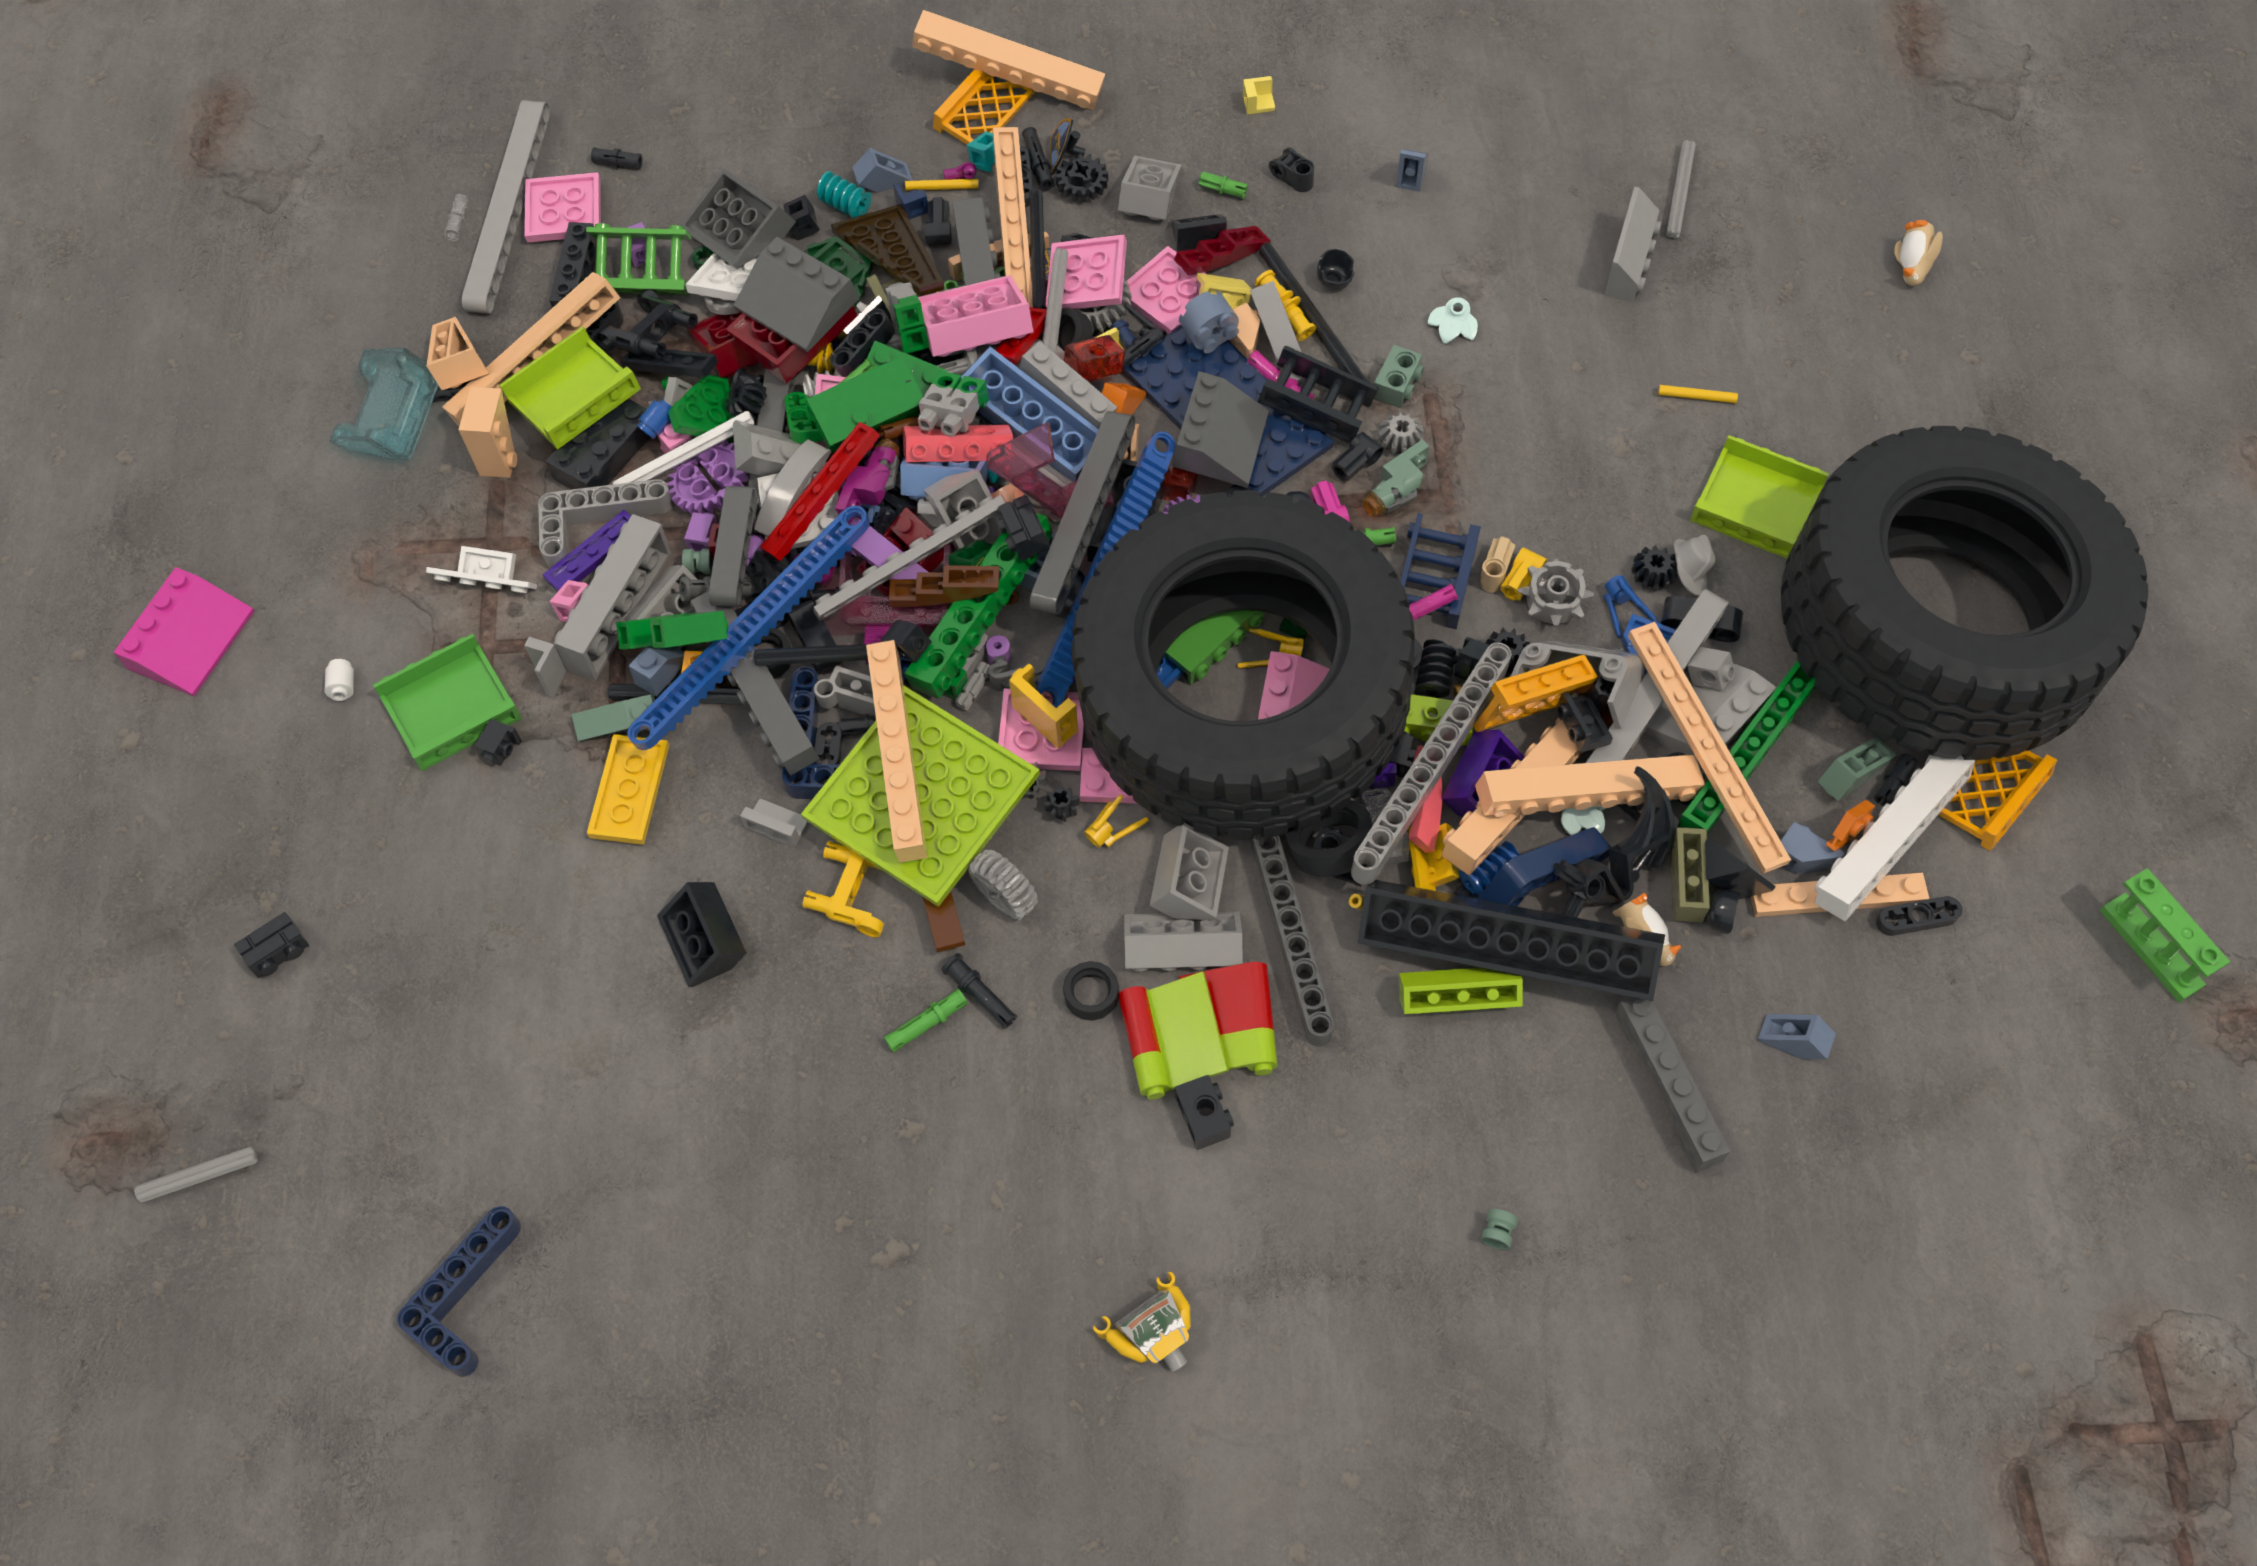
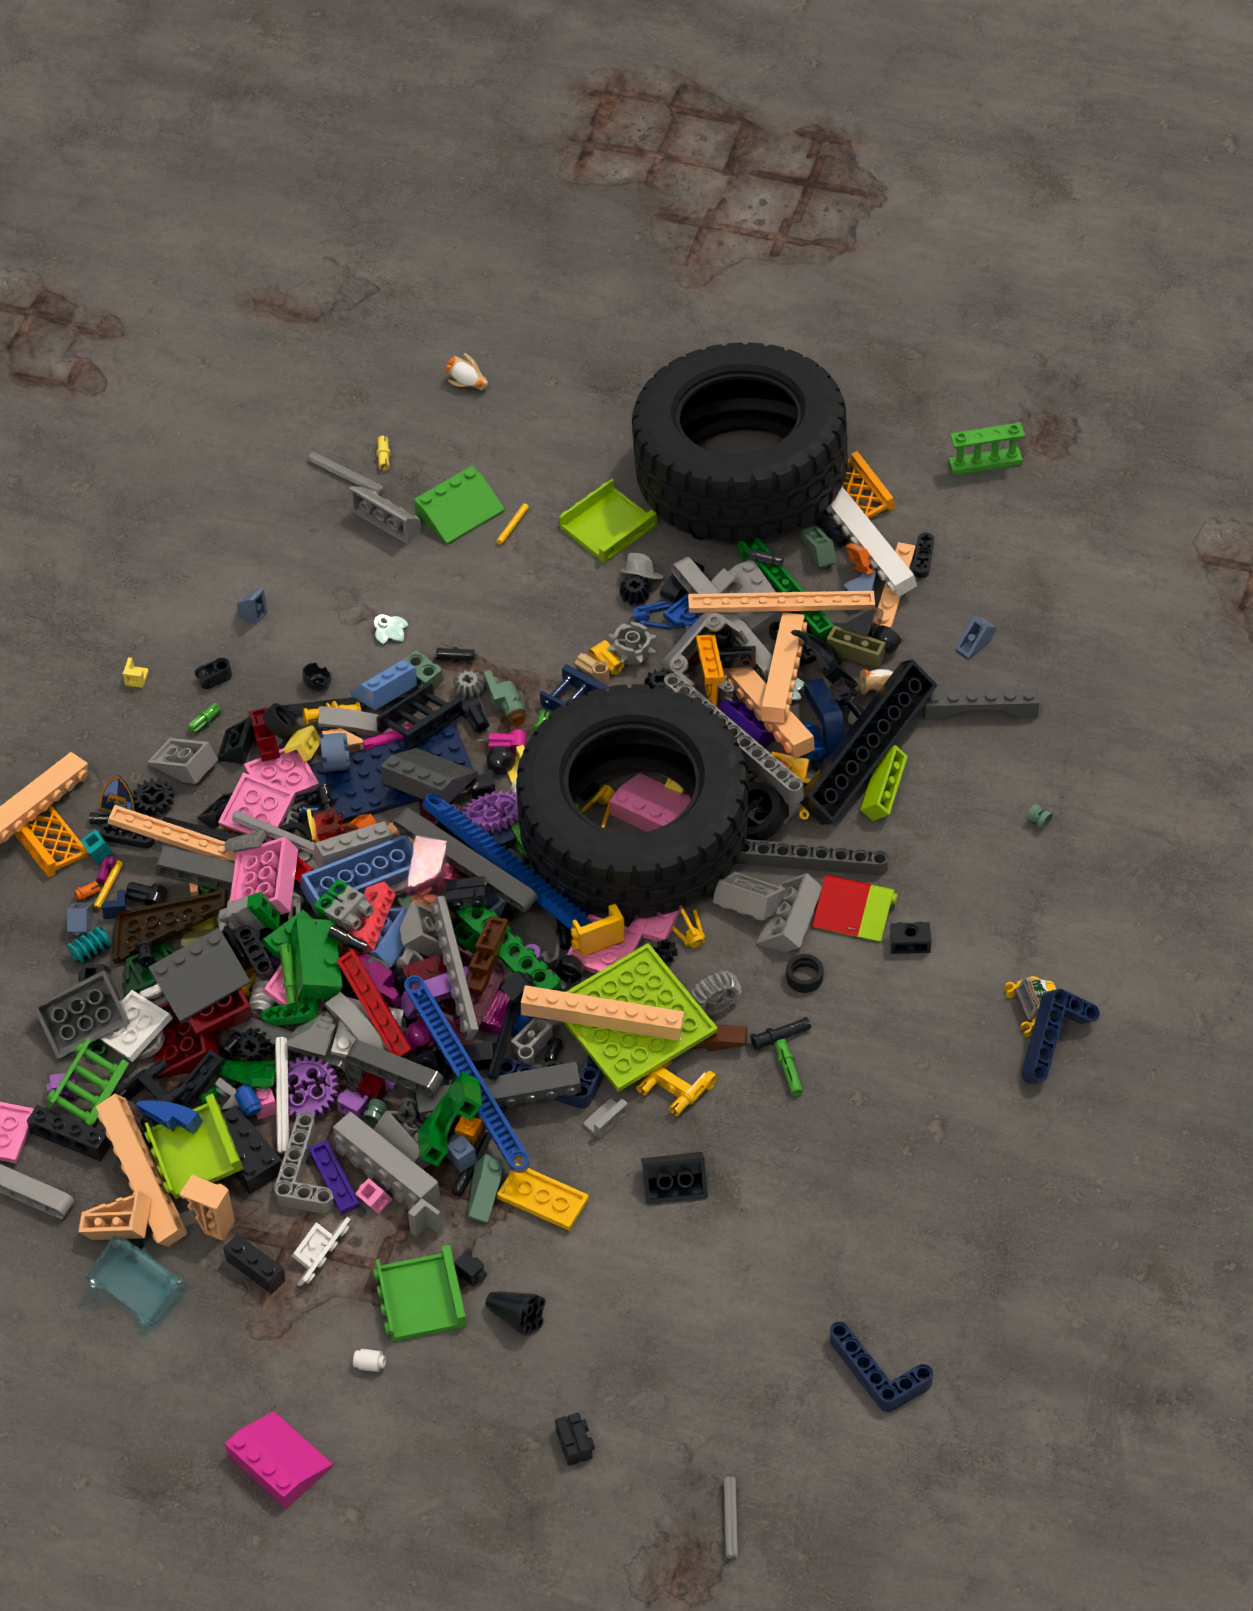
camera: 70 degrees left, 10 degrees down
(441, 816) = (518, 1310): none -> black cone
(442, 513) = (254, 1264): none -> black brick
(598, 347) = (171, 1115): none -> blue slope
(842, 247) = (145, 953): none -> black bush
(897, 423) = (347, 939): none -> black pin
(921, 166) = (86, 891): none -> orange pin
(988, 699) = (569, 968): none -> black hair
(1025, 276) = (245, 841): none -> light grey wing
(1098, 1360) = (1047, 1026): none -> dark blue beam
(1172, 1034) = (853, 936): lime door -> none
(1259, 255) = (280, 721): none -> black tyre
(1349, 344) = (386, 685): none -> medium blue slope
(1445, 403) = (455, 654): none -> black pin
(1519, 726) = (724, 691): none -> light grey hinge
(1692, 322) = (458, 505): none -> bright green slope
(1735, 214) = (383, 453): none -> light yellow pin
(1781, 701) = (766, 557): none -> black axle

